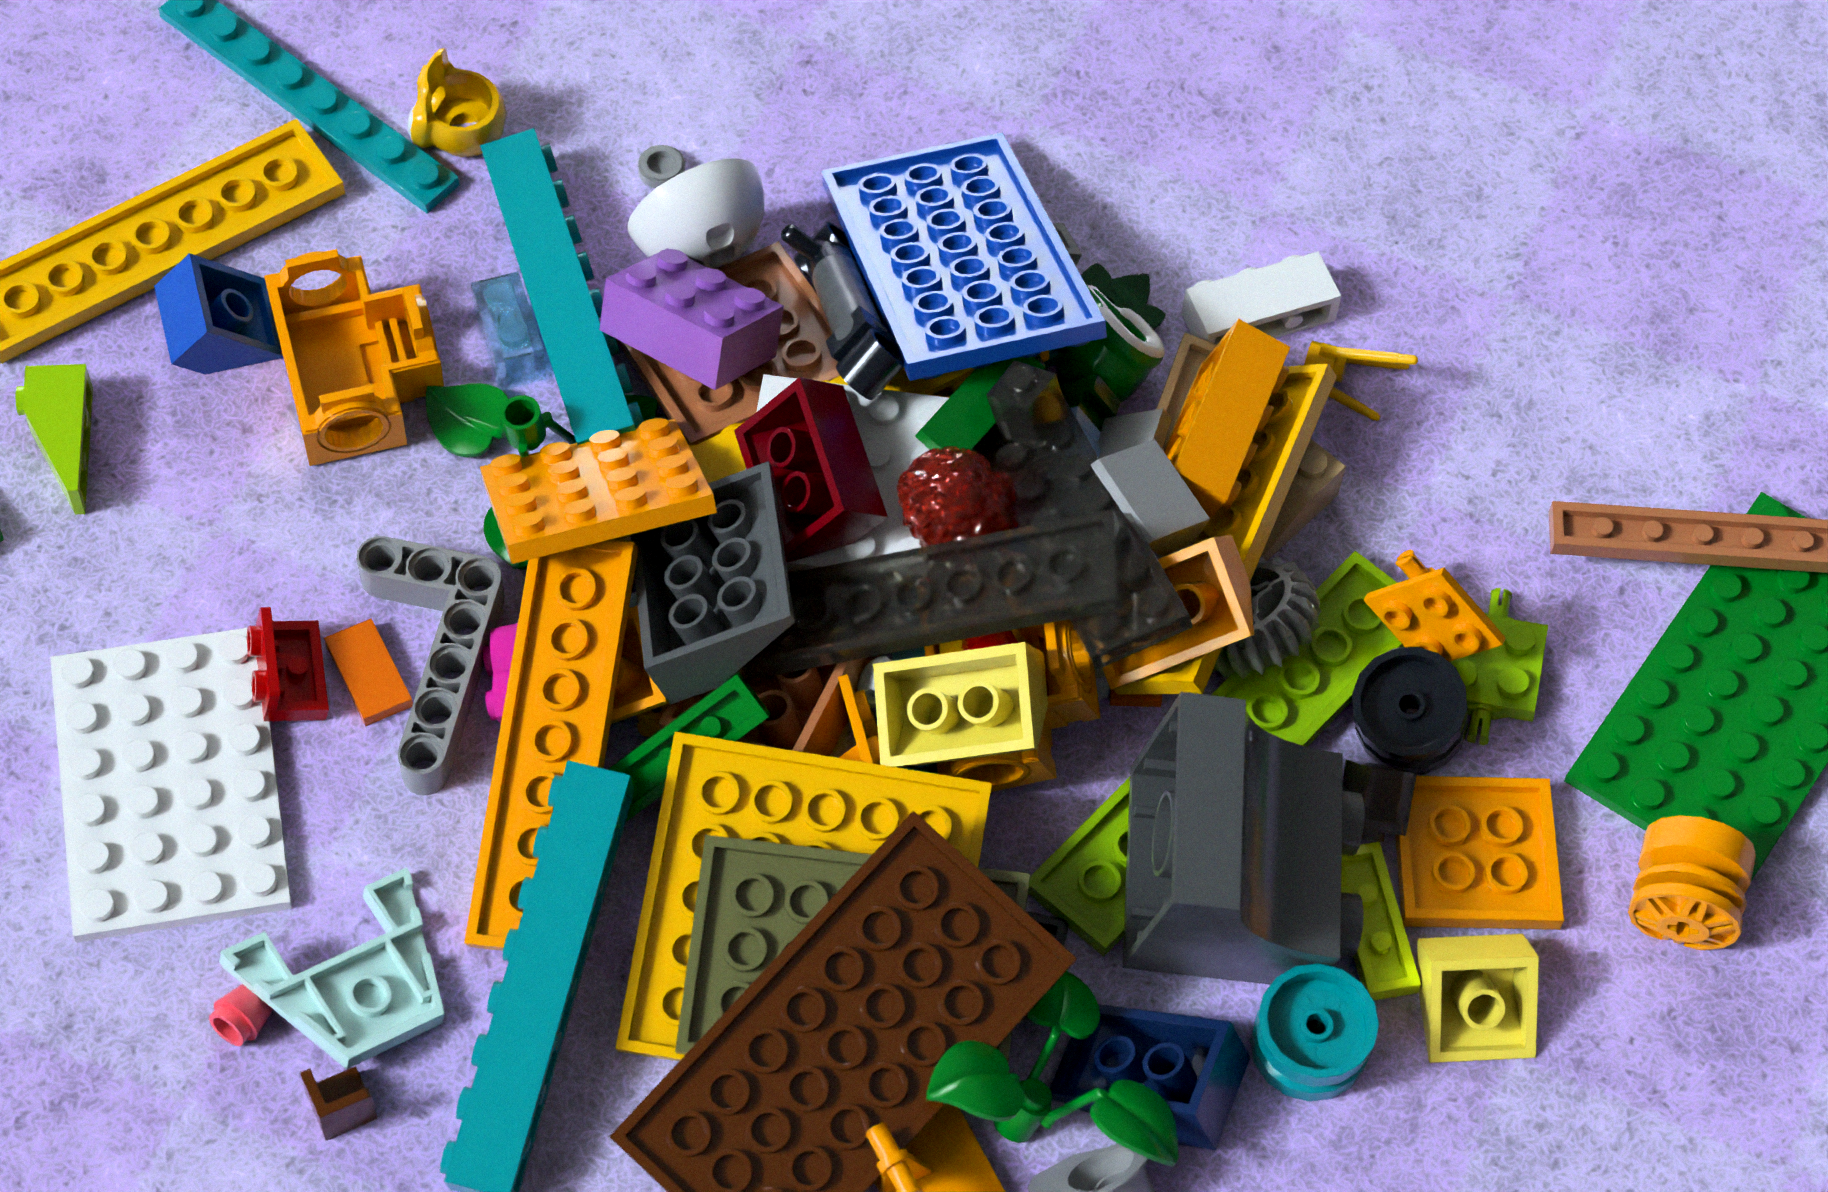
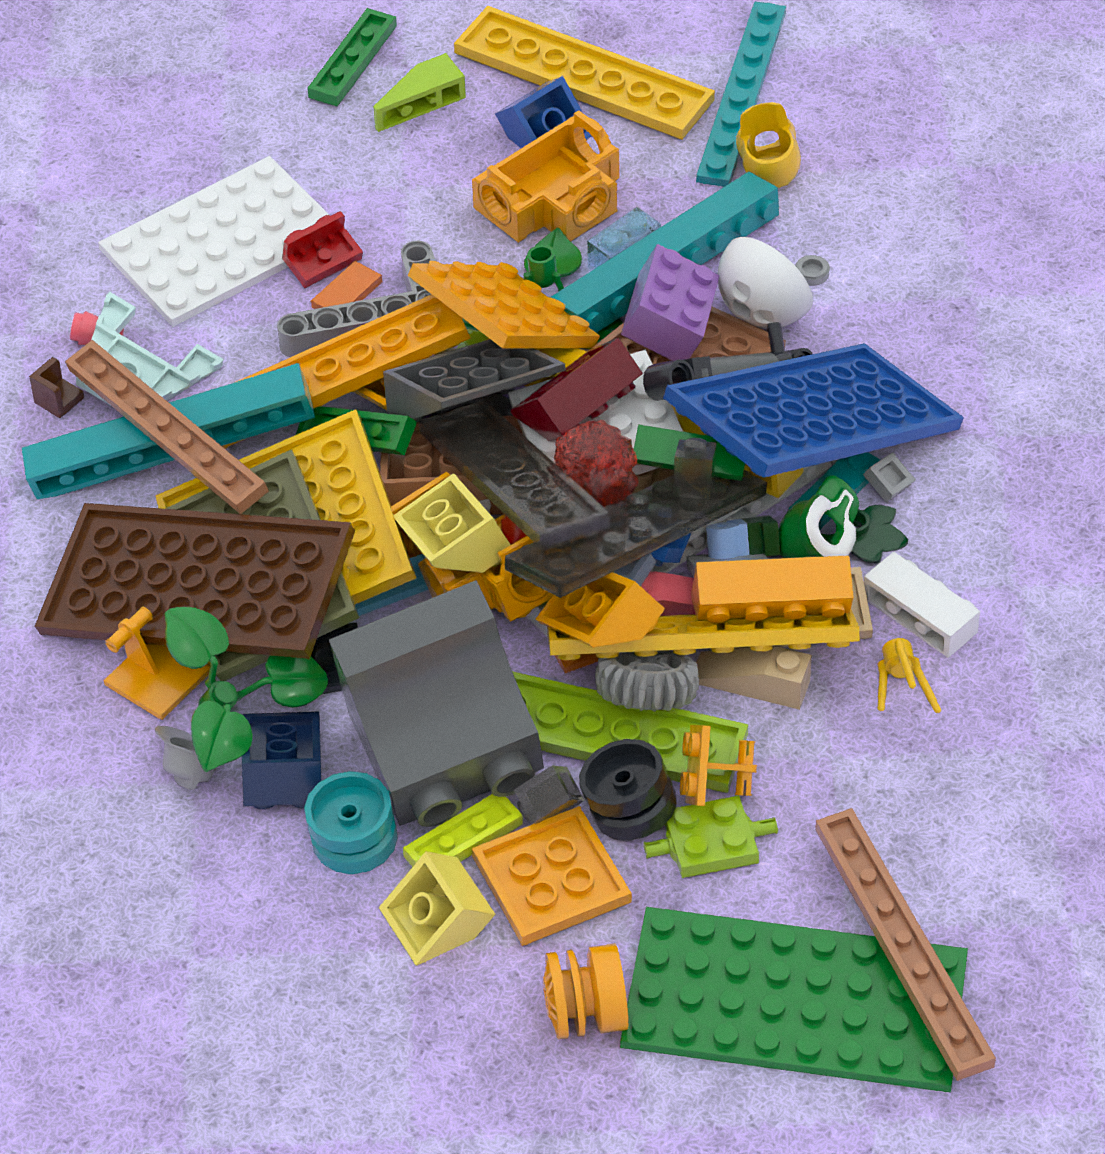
camera: 70 degrees right, 10 degrees down
(565, 971) = (167, 427): none -> nougat plate
(1155, 495) = (667, 559): light grey slope -> none

